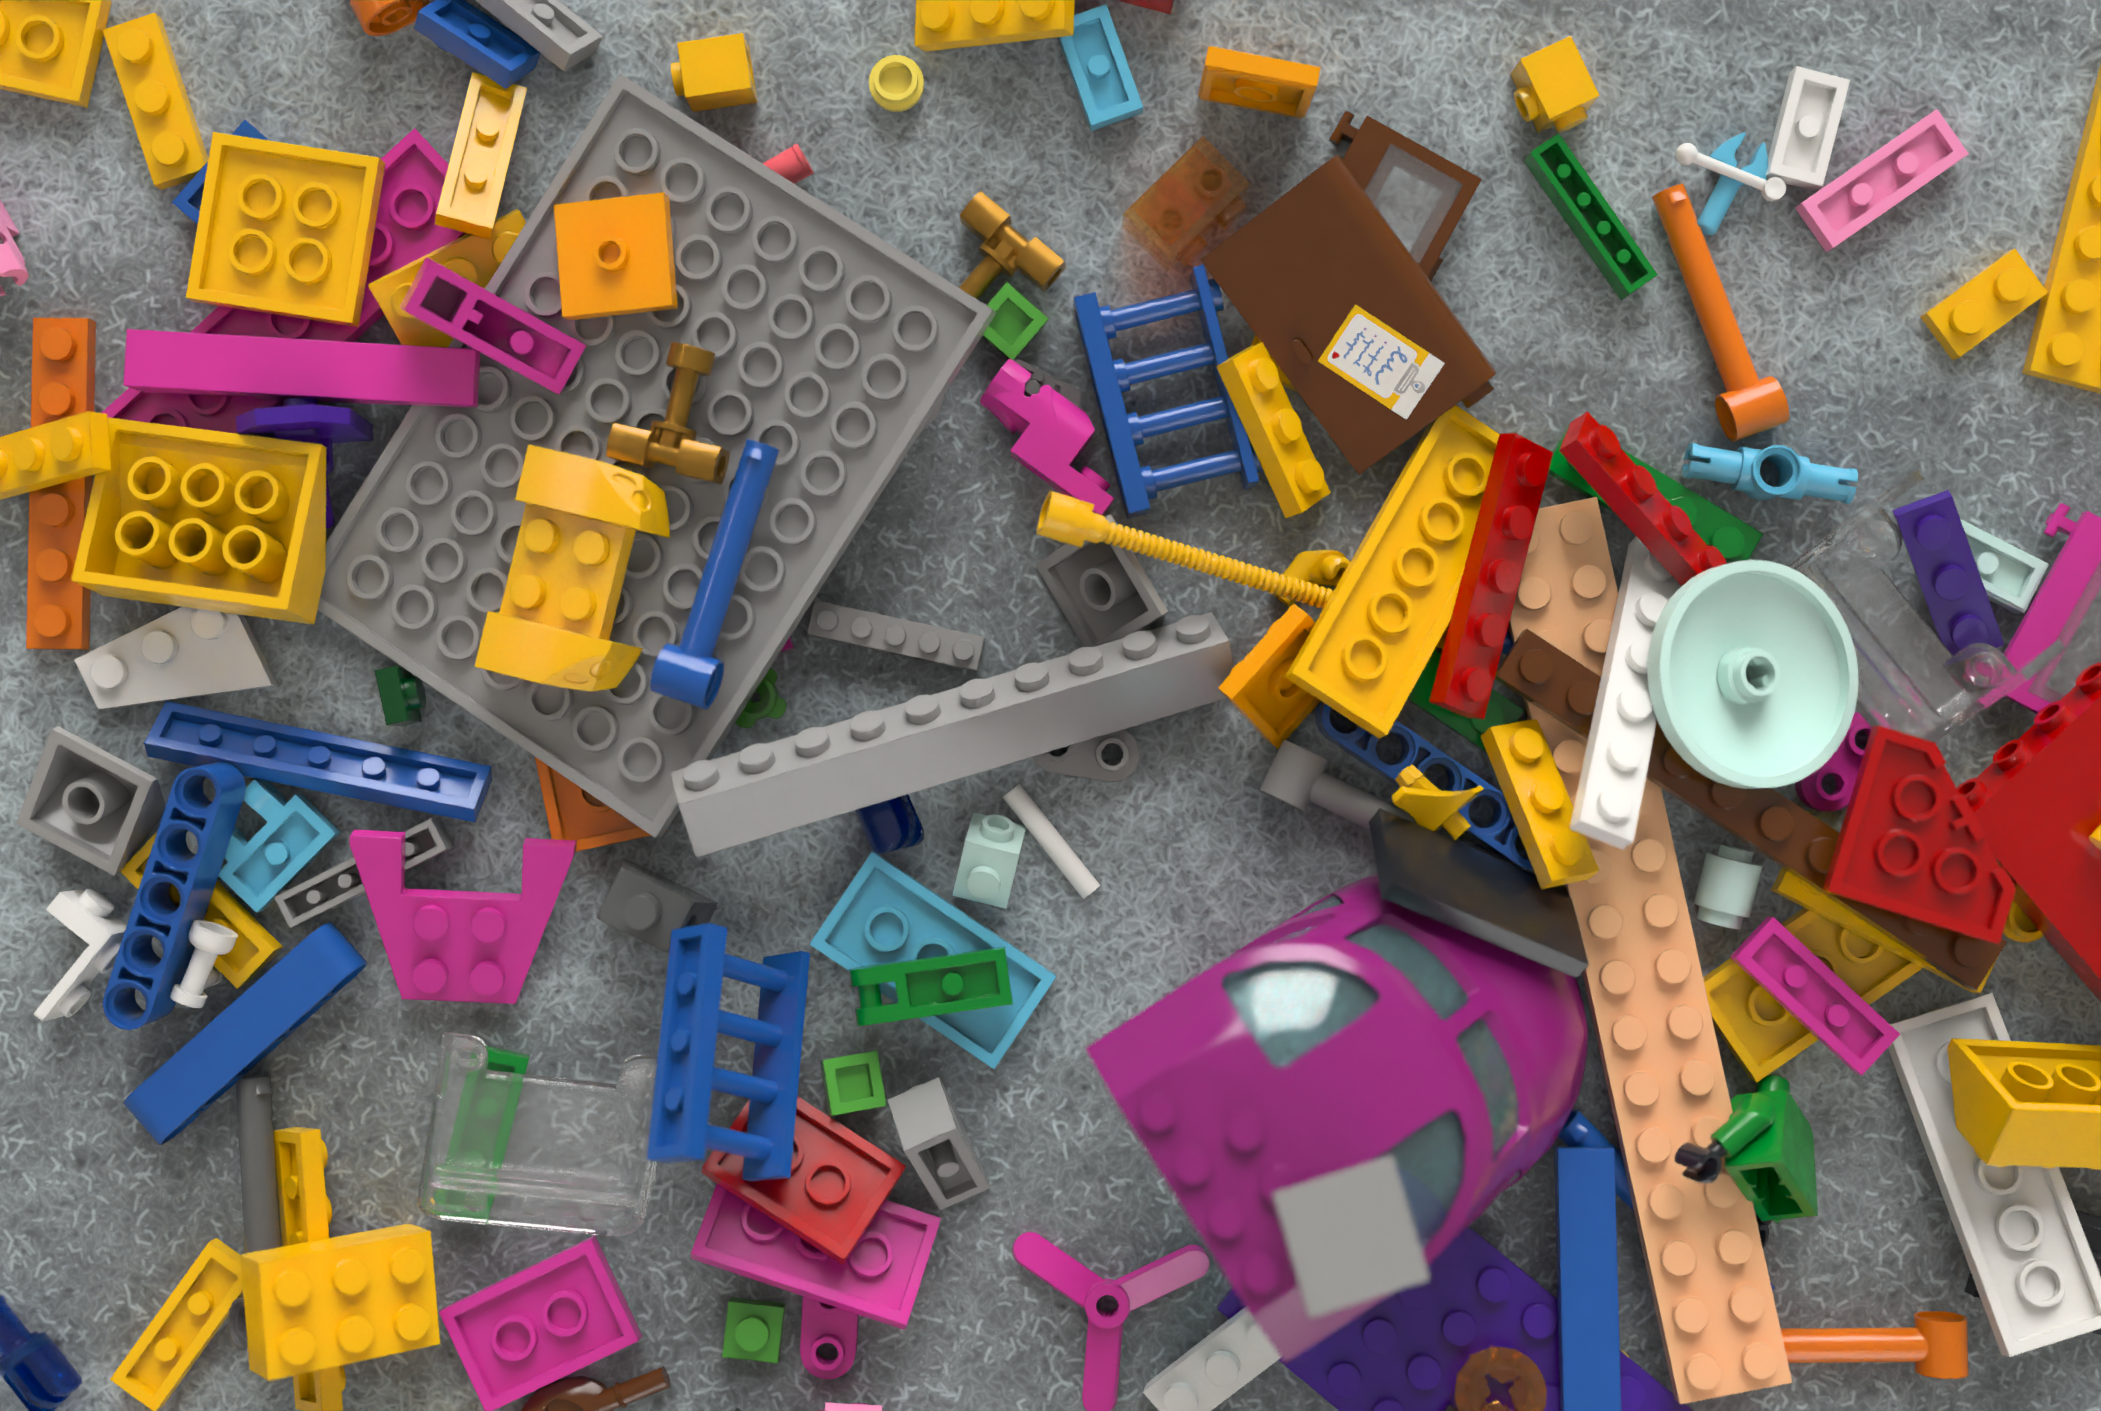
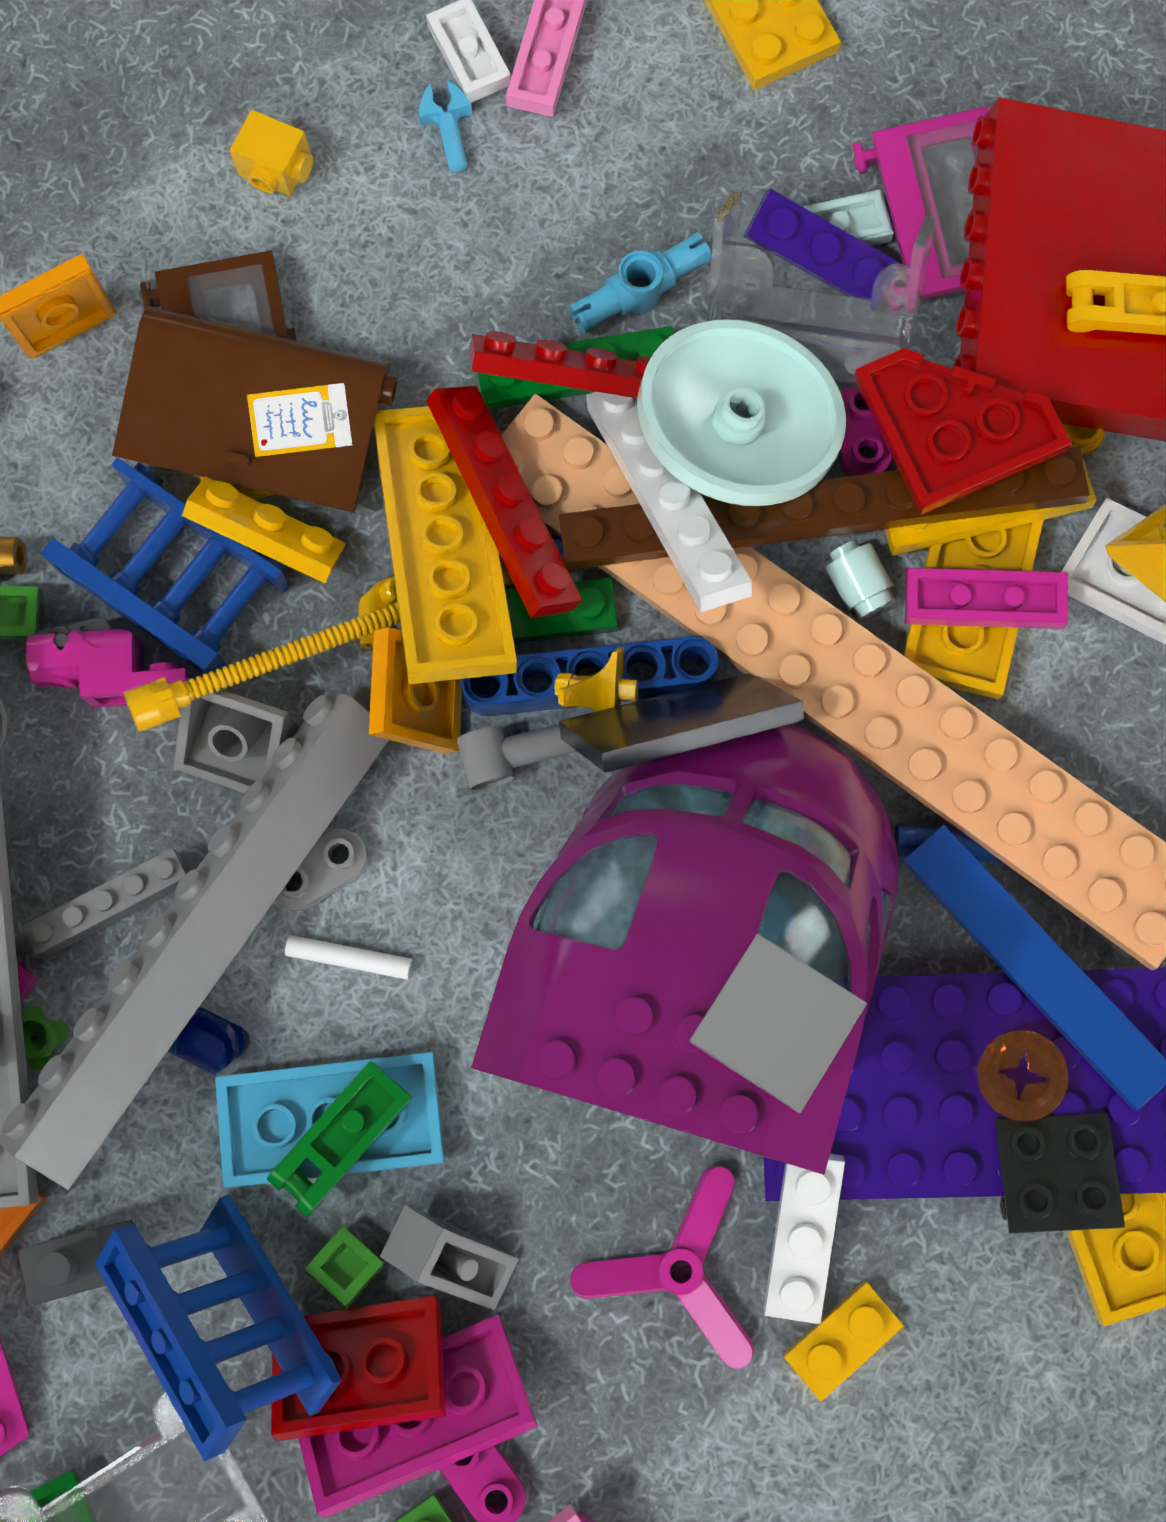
camera: 35 degrees left, 10 degrees down
(989, 859) = (312, 1009): light aqua bracket -> none
(1187, 205) = (75, 431): clear orange brick -> none
(1539, 803) = (675, 627): yellow plate -> none
(1589, 217) = (370, 218): green piece -> none
(1748, 402) = (584, 250): orange piece -> none
(1765, 1152) = (1053, 735): green torso -> none
(1771, 189) = (478, 103): white hinge -> none
(1983, 304) = (687, 66): yellow plate -> none

